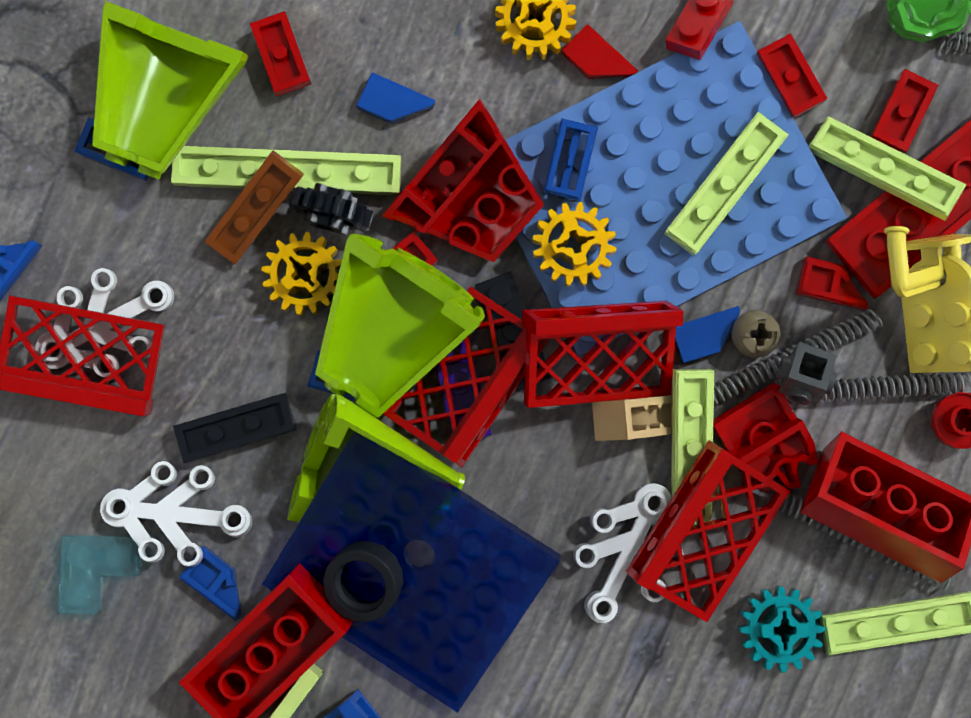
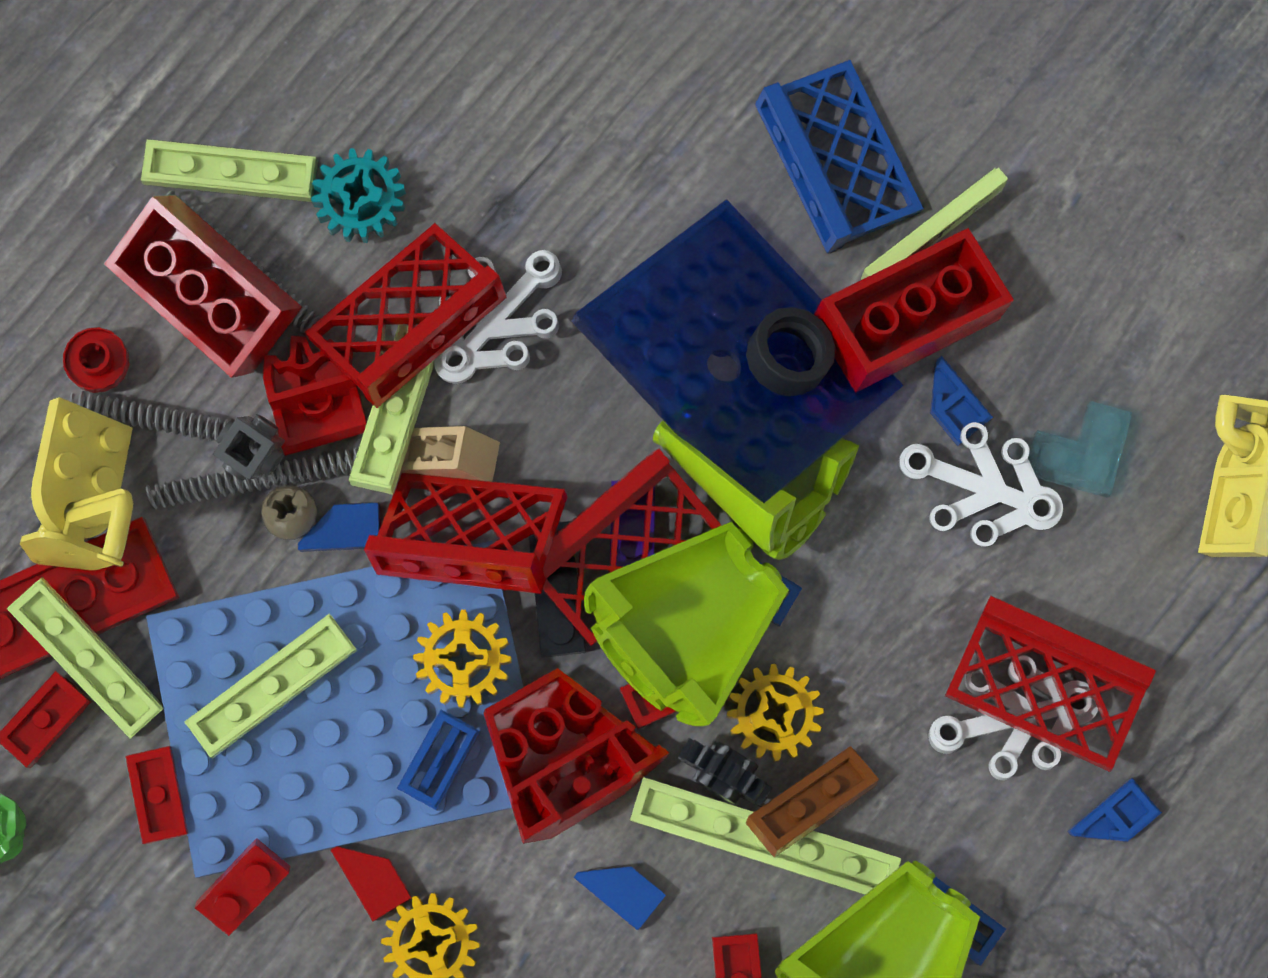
camera: 165 degrees left, 5 degrees down
(234, 428) = (893, 561): black plate -> none
(829, 283) = (189, 549): red tile -> none

